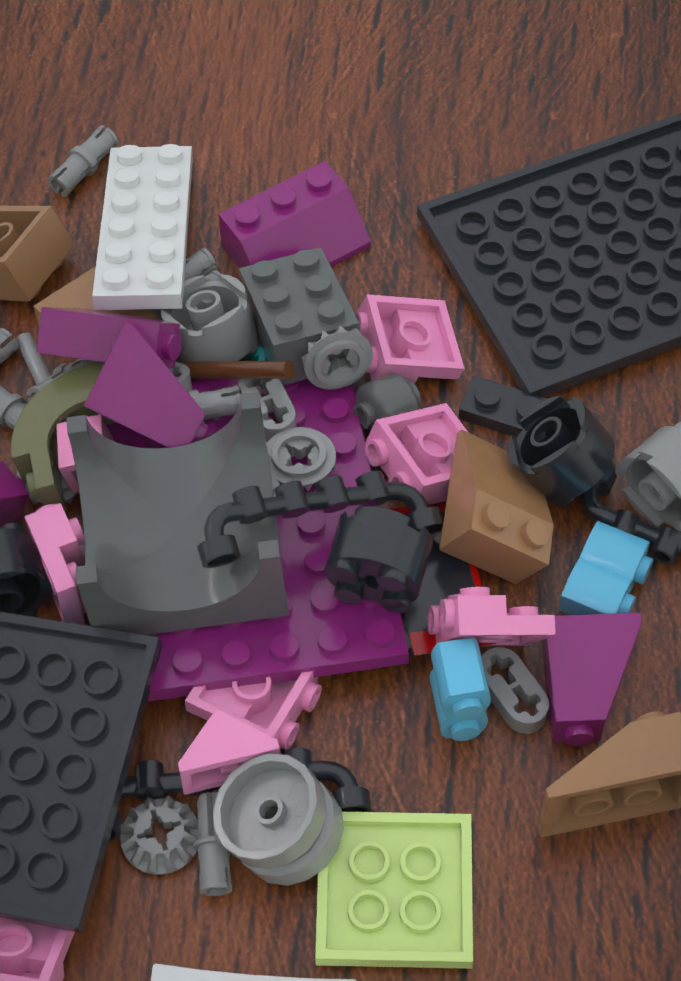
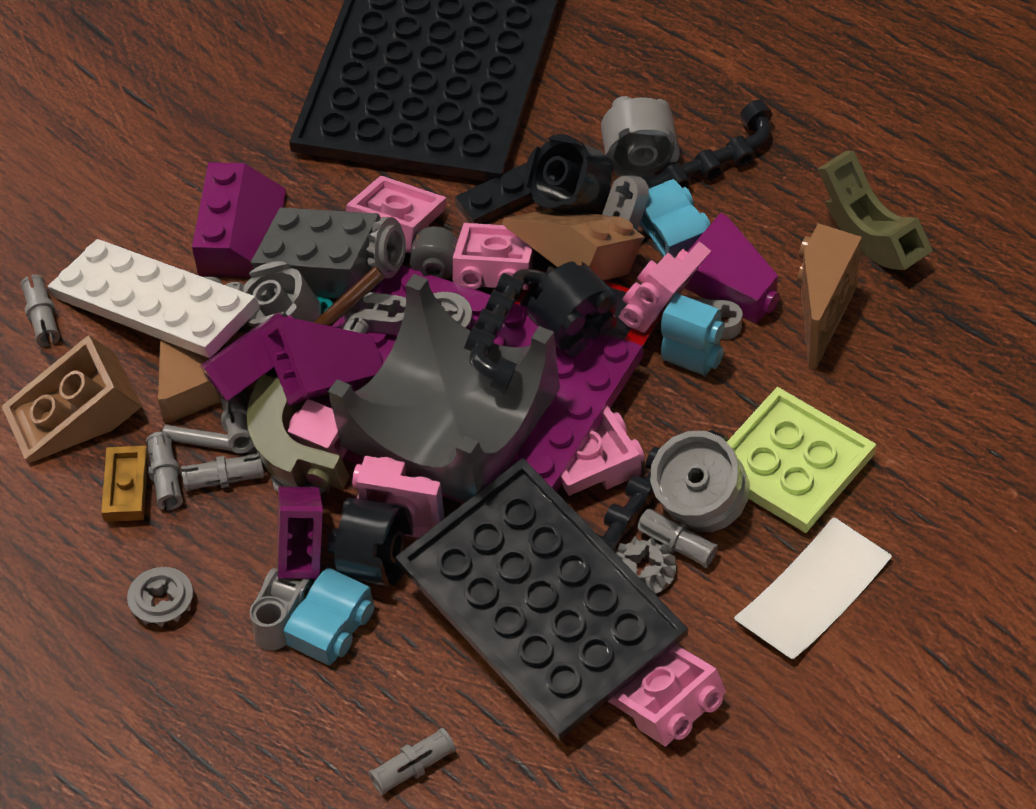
camera: 50 degrees left, 5 degrees down
(220, 749) = (628, 480): bright pink slope -> none
(577, 522) = (620, 202): none -> light grey beam

